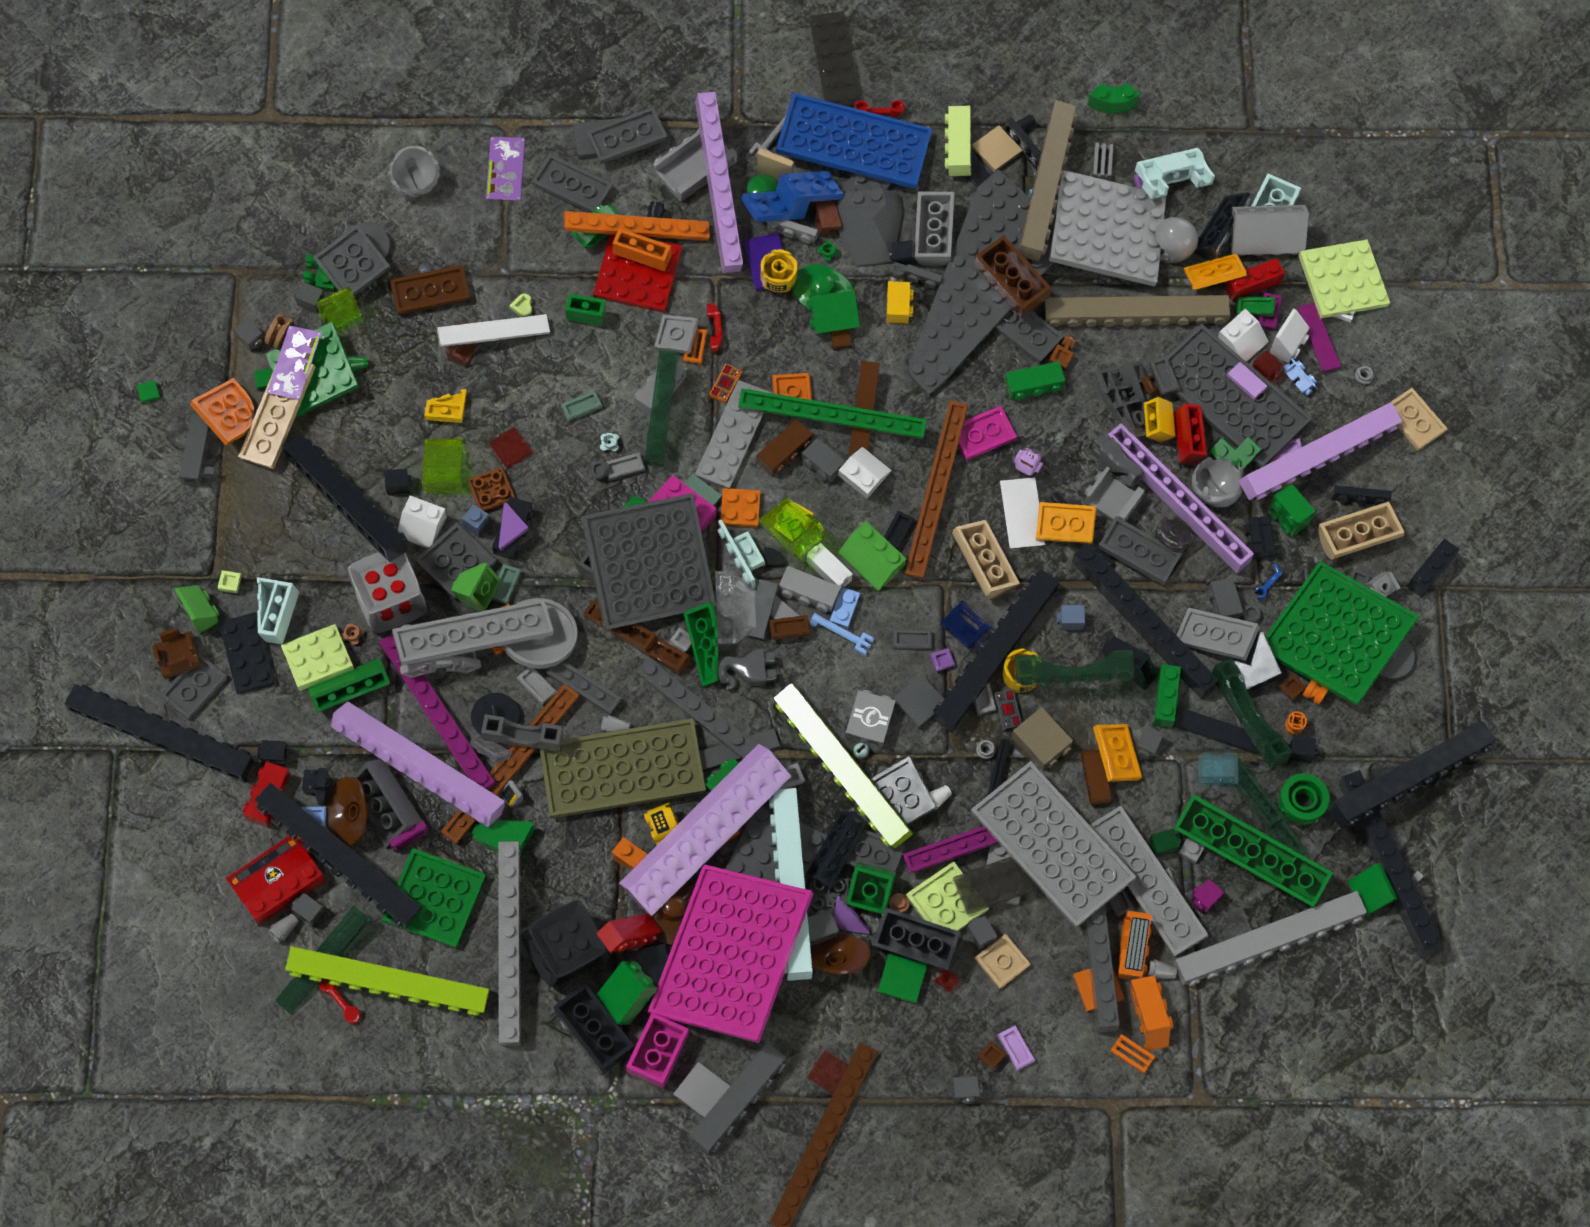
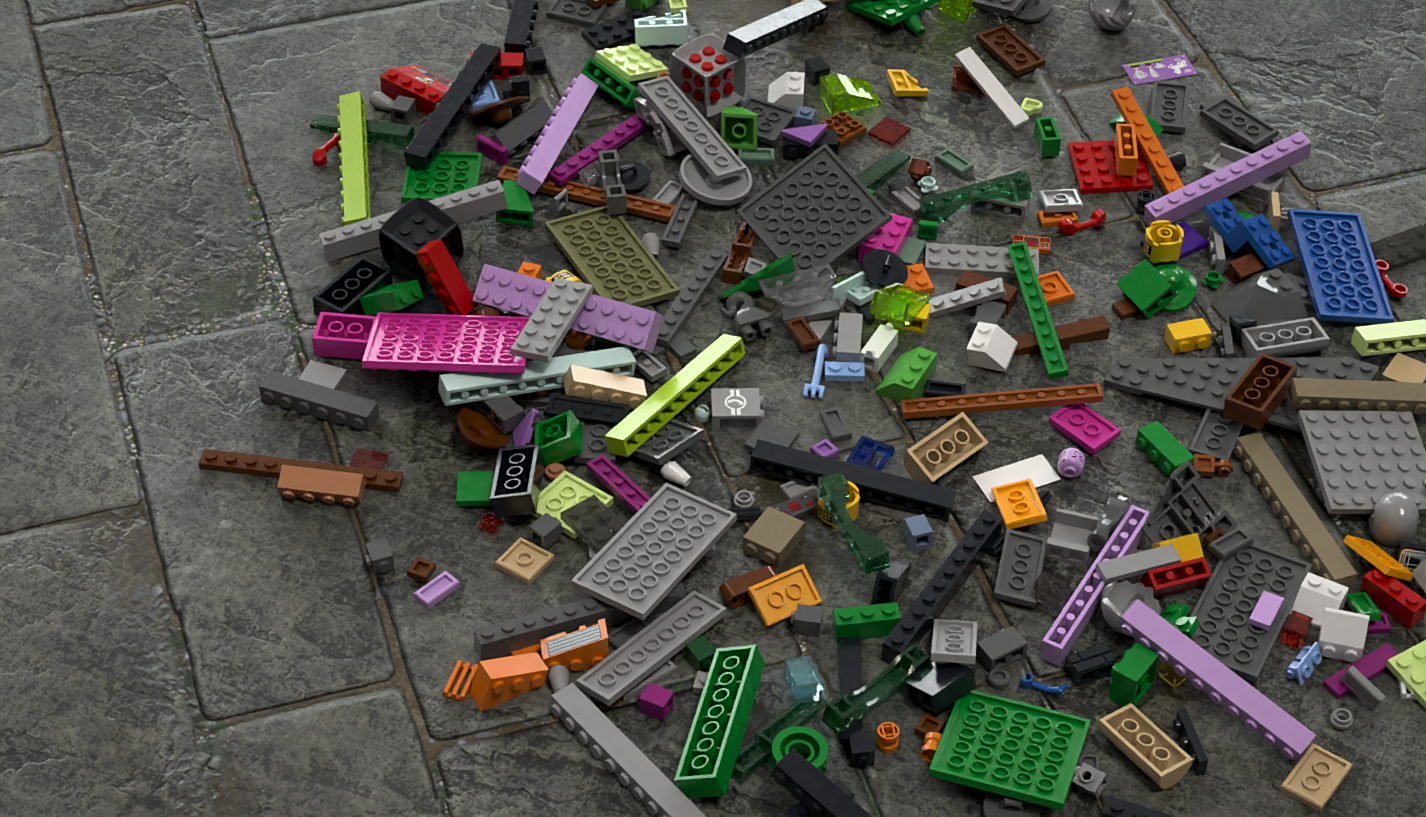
camera: 75 degrees right, 25 degrees down
(576, 480) = (883, 169): none -> clear green slope
(588, 441) = (919, 169): none -> copper plate
(679, 466) = (927, 229): none -> green tile
(706, 267) = (1143, 198): none -> black wheel
(733, 524) = (884, 268): none -> black shield
(749, 847) = (551, 320): none -> light grey plate
(795, 465) = (967, 297): none -> light grey plate
(819, 827) = (604, 386): none -> tan brick
(859, 1121) = (321, 485): none -> nougat brick
(1179, 457) = (1137, 563): none -> light grey tile
(1345, 346) = (1362, 687): none -> light grey tile

